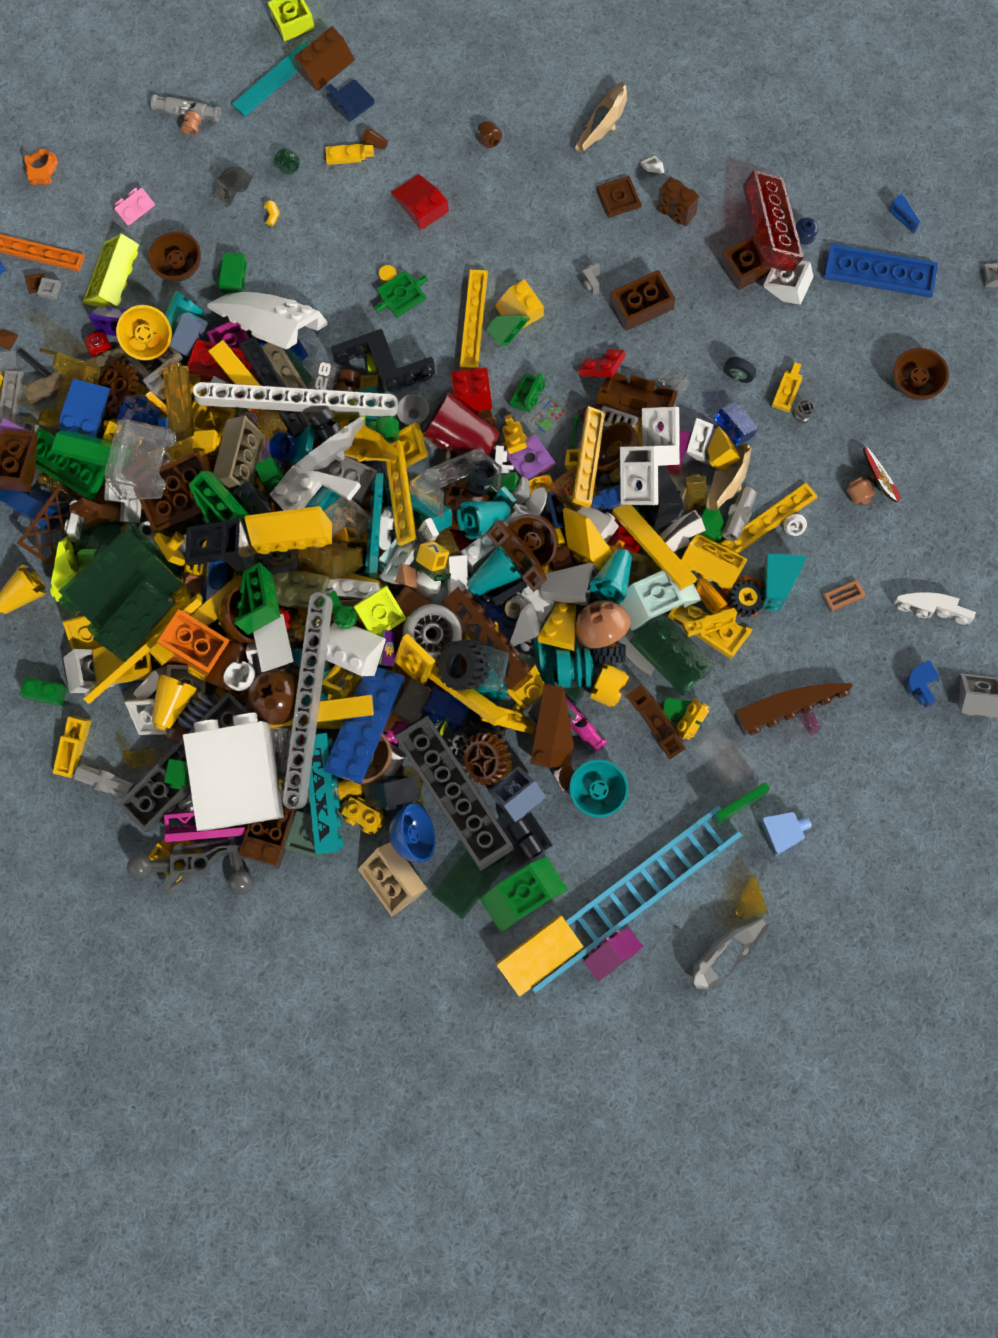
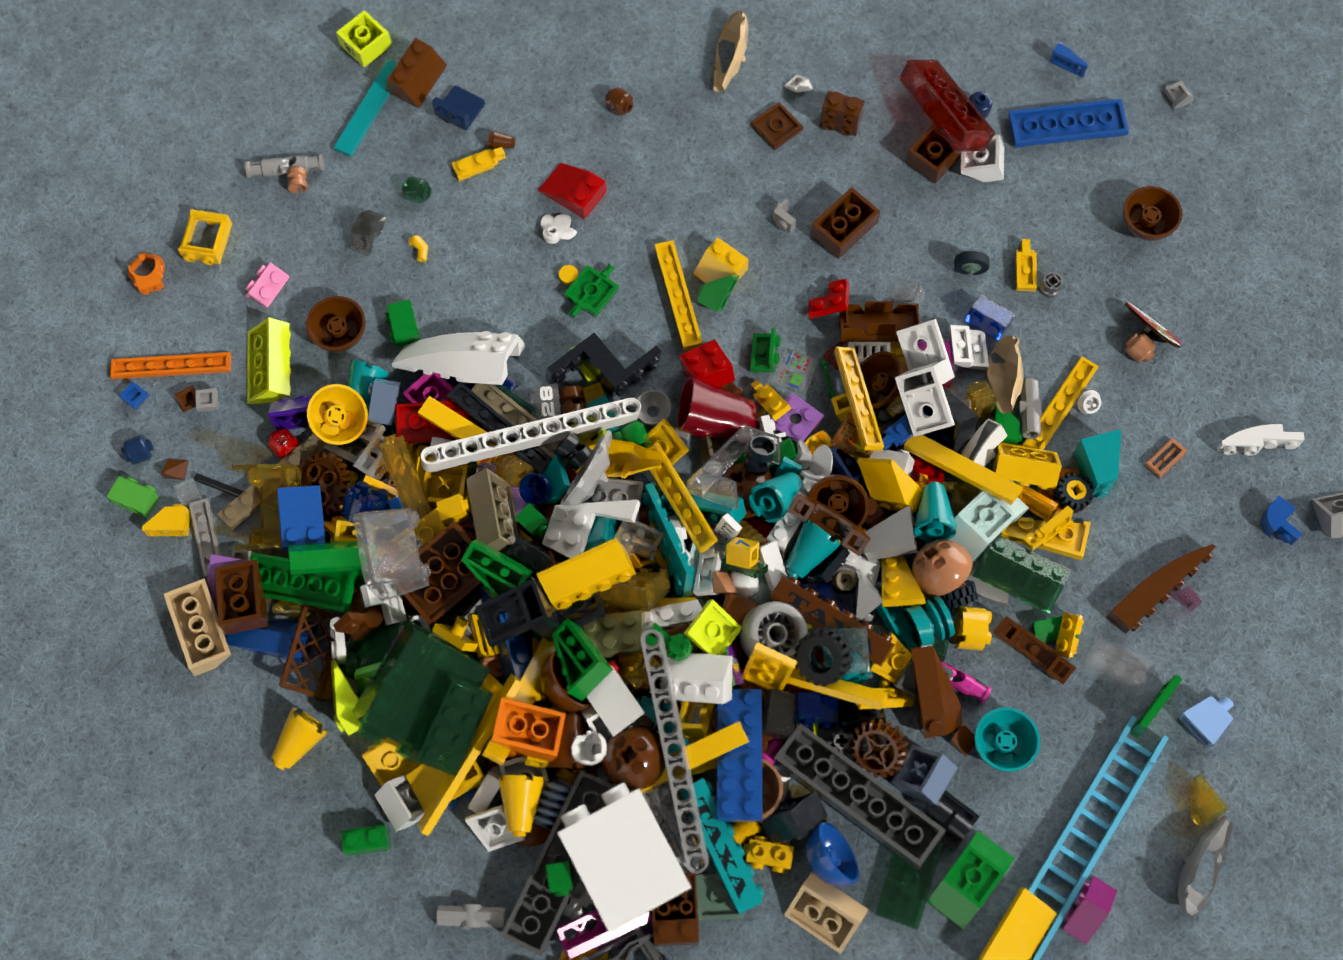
camera: 25 degrees left, 5 degrees down
(71, 746) = (419, 890): yellow slope -> none
(110, 156) = (206, 255): none -> yellow window
(140, 758) = (501, 877): clear yellow hair -> none
(393, 230) = (557, 228): none -> white plate
(722, 450) = (989, 350): yellow slope -> none

